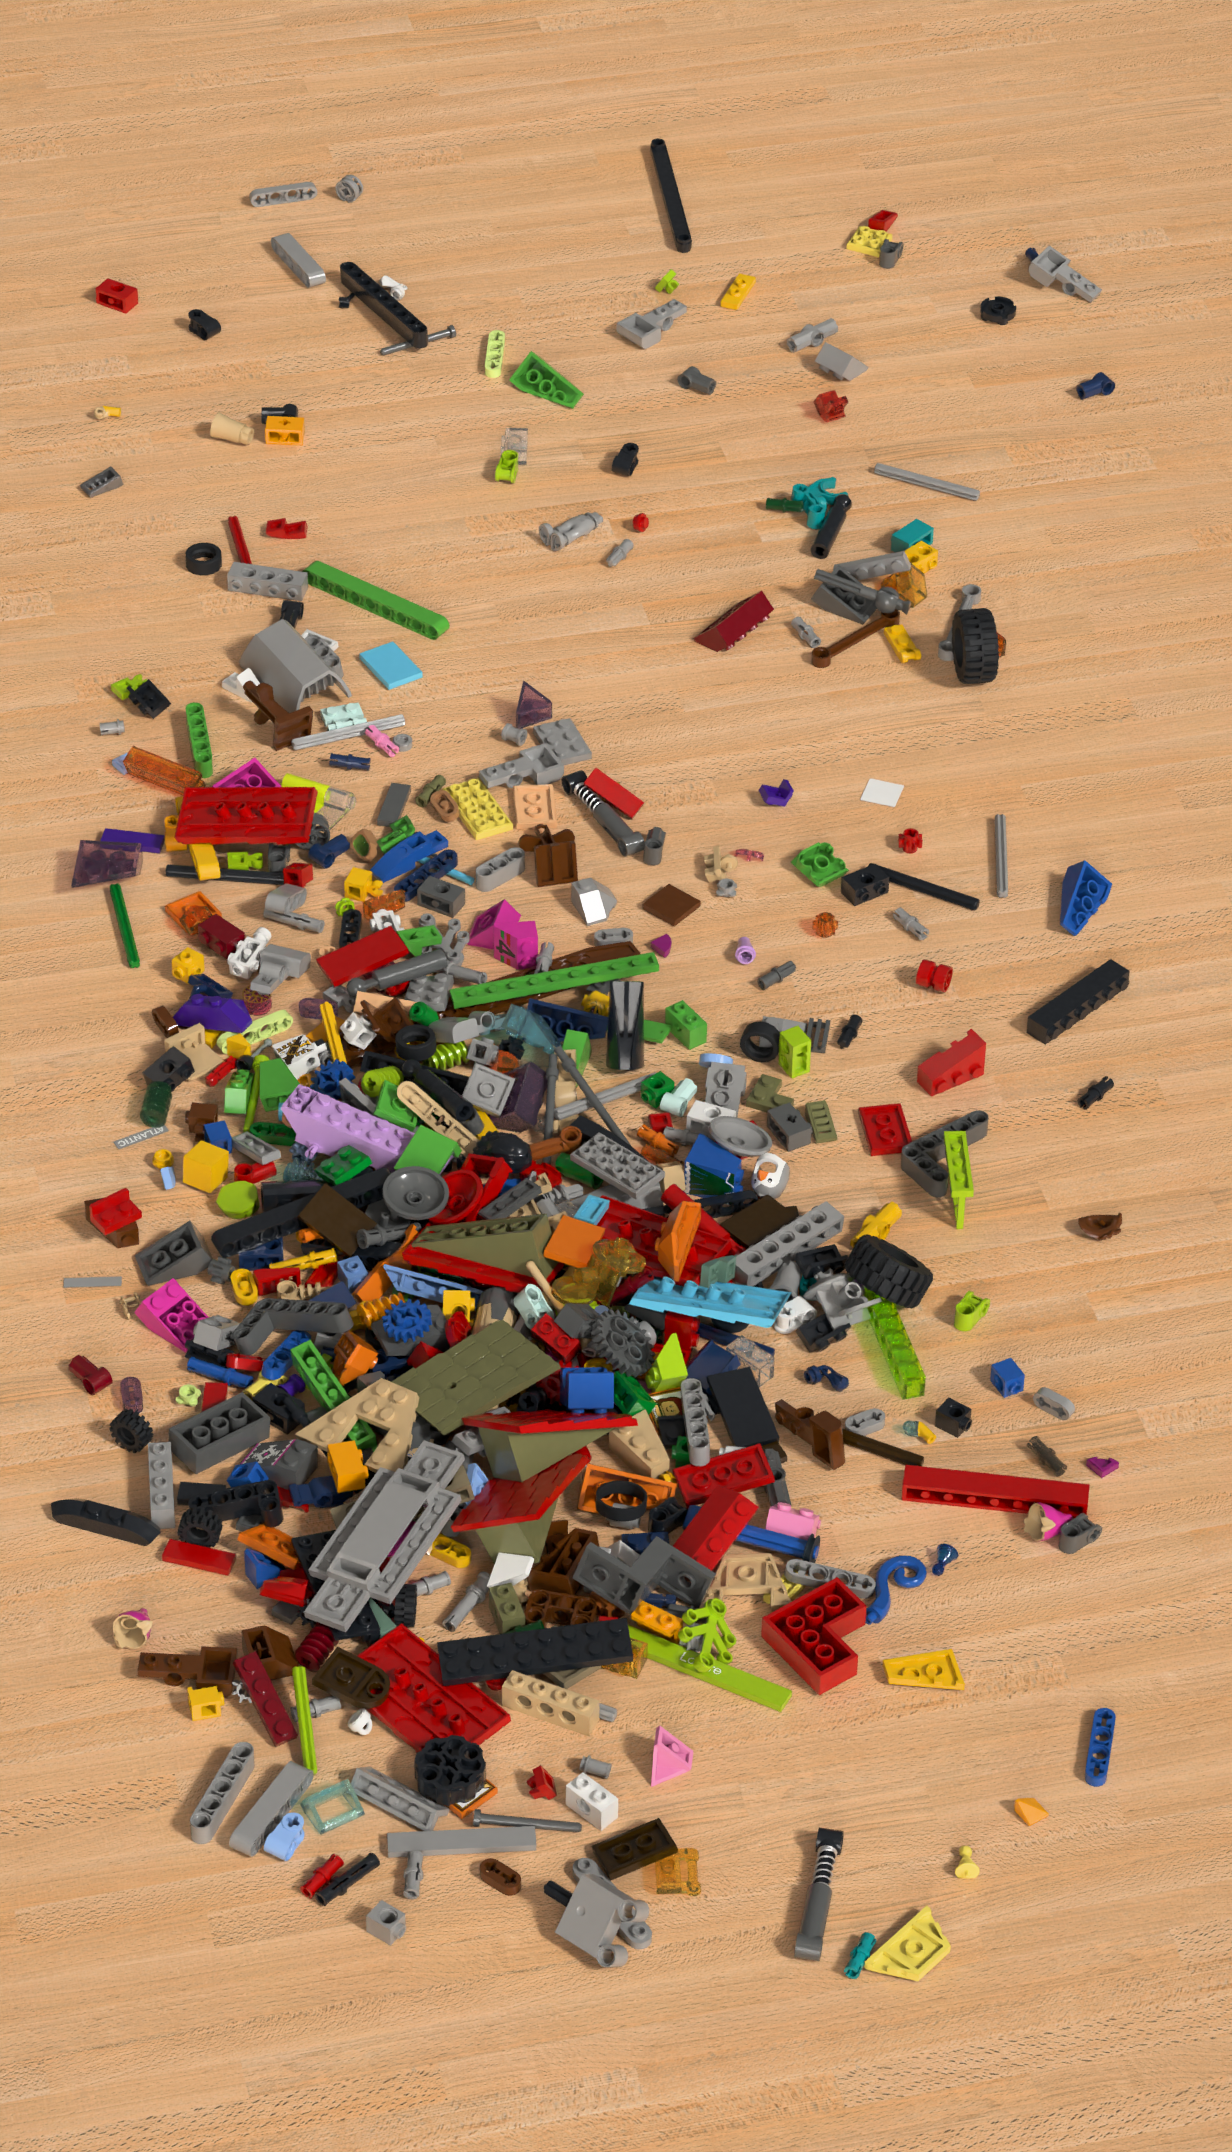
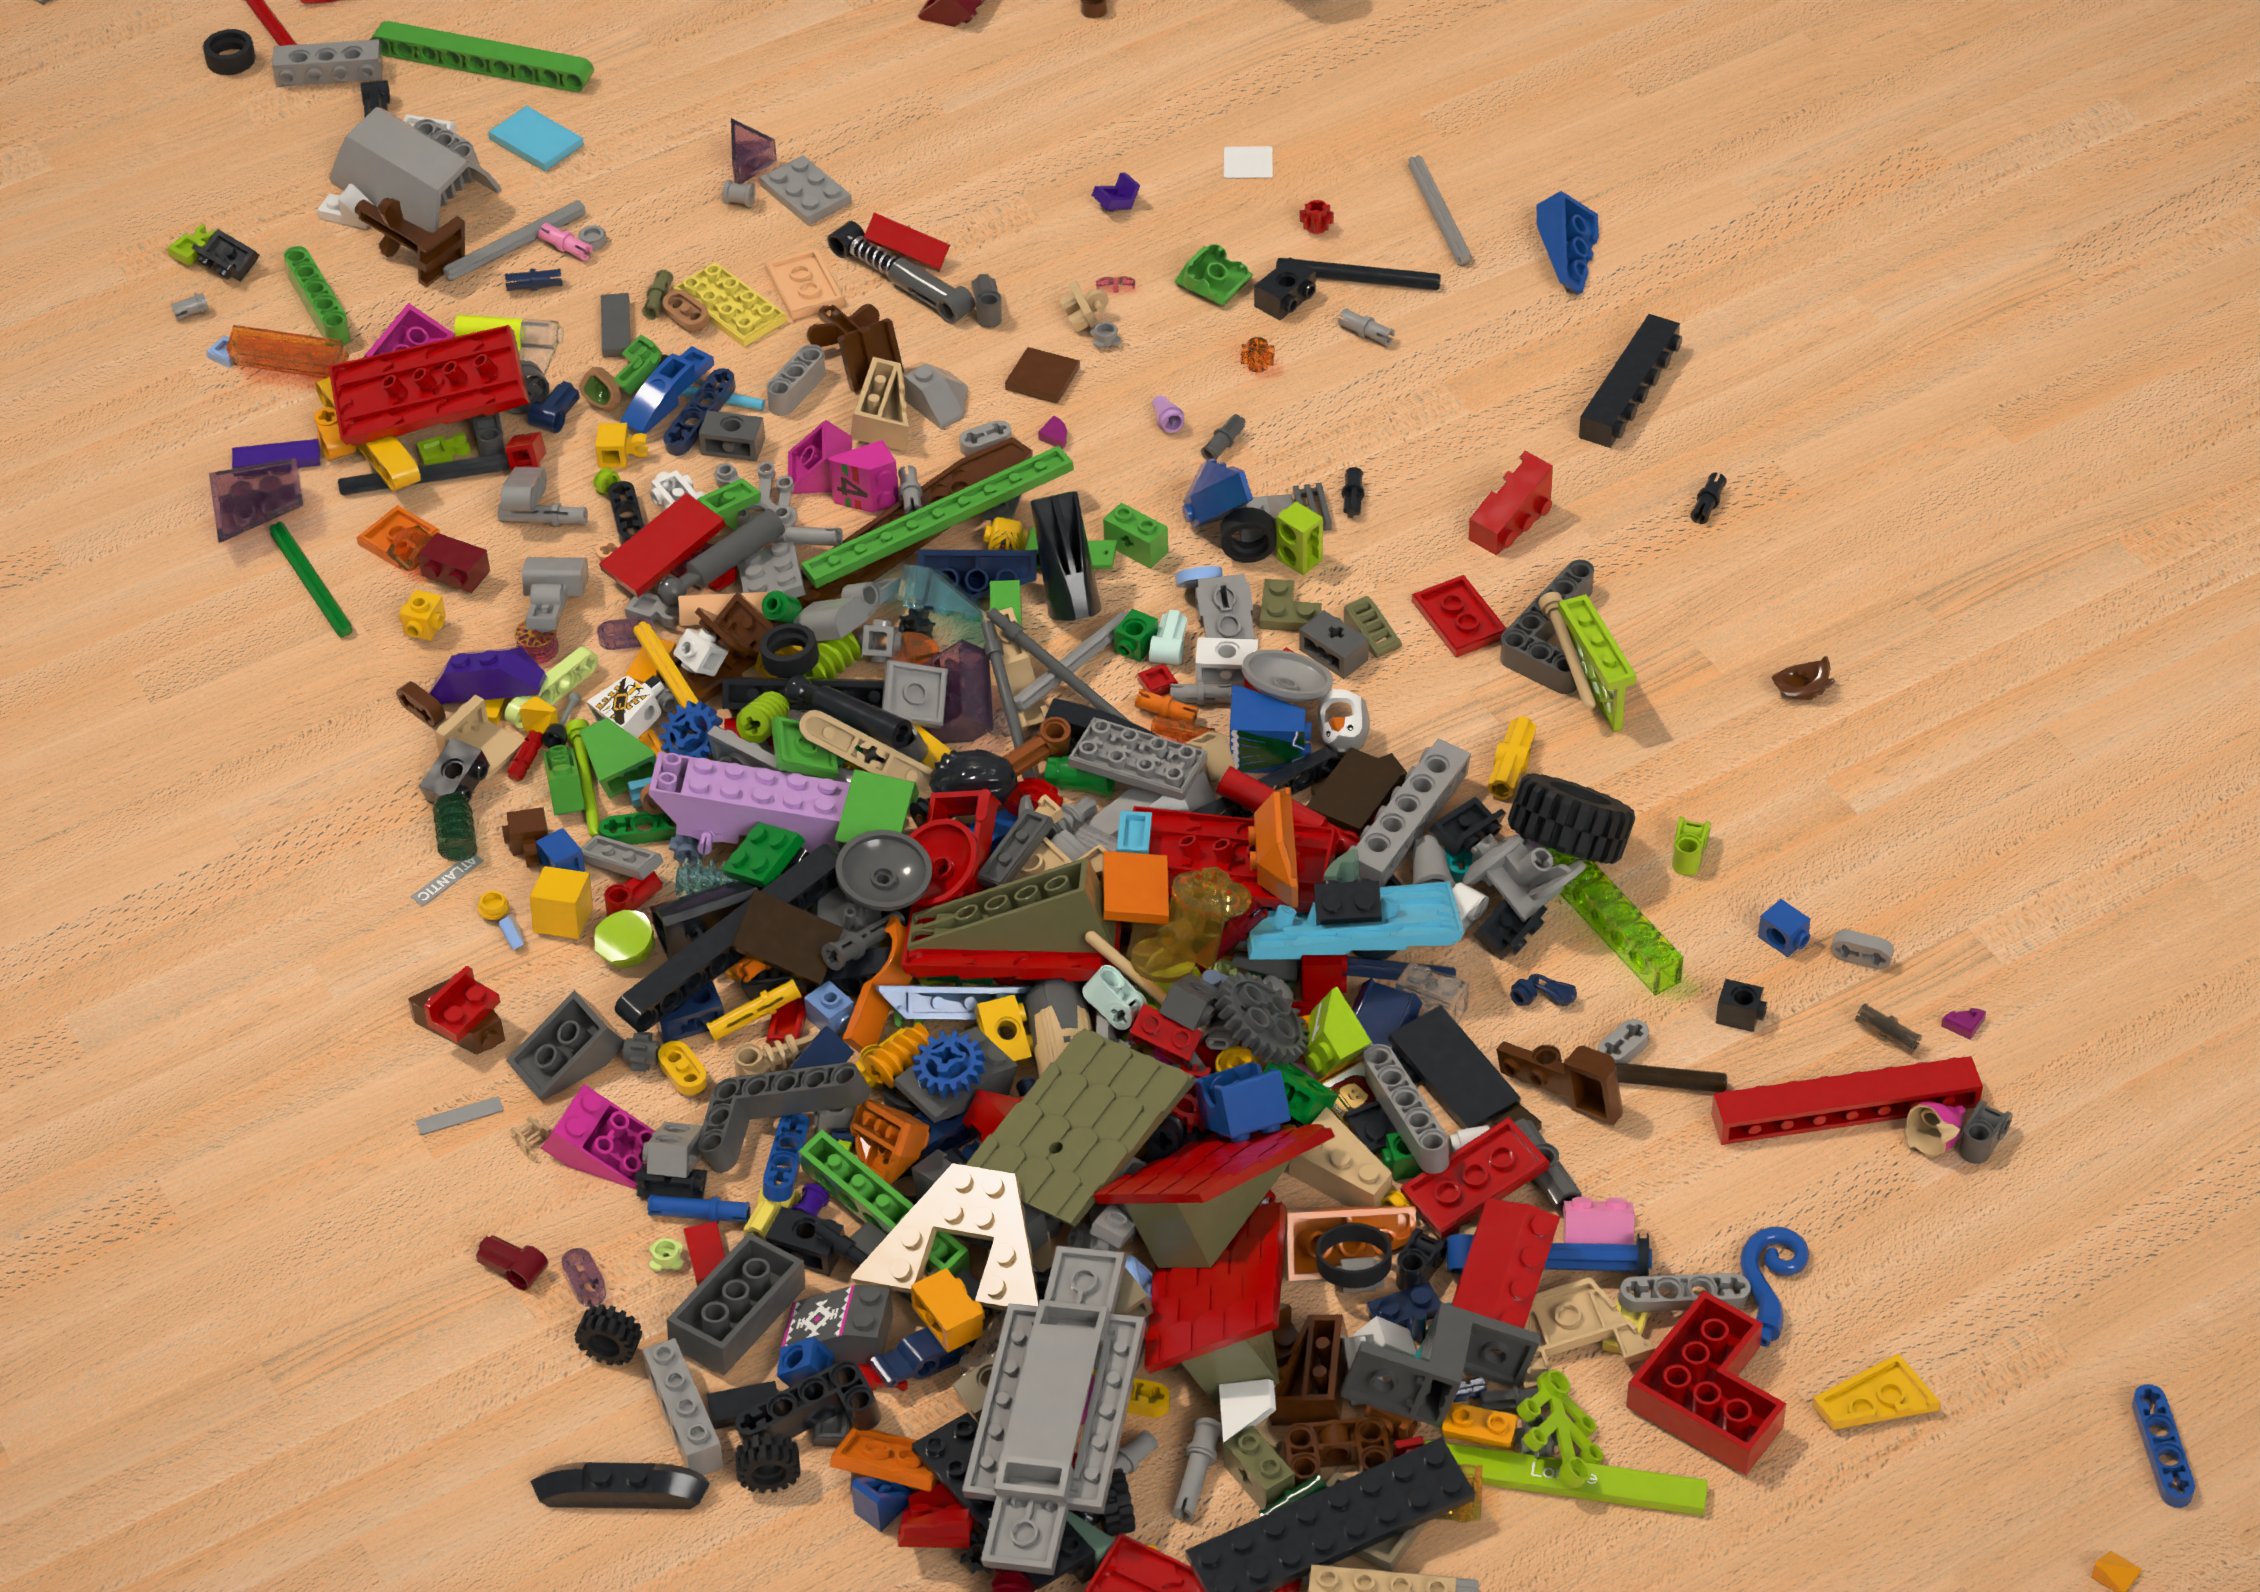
camera: 15 degrees left, 5 degrees up
(199, 1557) = (778, 1506): red tile -> none
(204, 984) = (459, 637): dark blue plate -> none
(245, 1362) = (733, 1182): red beam -> none
(248, 954) = (502, 578): white brick -> none
(268, 1279) = (718, 1047): red slope -> none
(286, 1612) = (940, 1560): dark grey tile -> none
(342, 716) = (498, 220): light aqua plate -> none
(384, 902) = (658, 462): clear orange slope -> none
(457, 1328) = (1019, 1058): red tile -> none
(537, 762) = (782, 224): light grey plate -> none
(548, 899) = (882, 407): none -> tan wedge
(708, 1284) = (1347, 902): none -> black bracket
(745, 1009) = (1215, 493): none -> blue wedge
(919, 1429) = (1701, 1034): arm -> none
(932, 975) = (1431, 389): red wheel -> none
(942, 1180) = (1549, 607): none -> tan piece
(946, 1554) = (1821, 1211): clear blue piece -> none

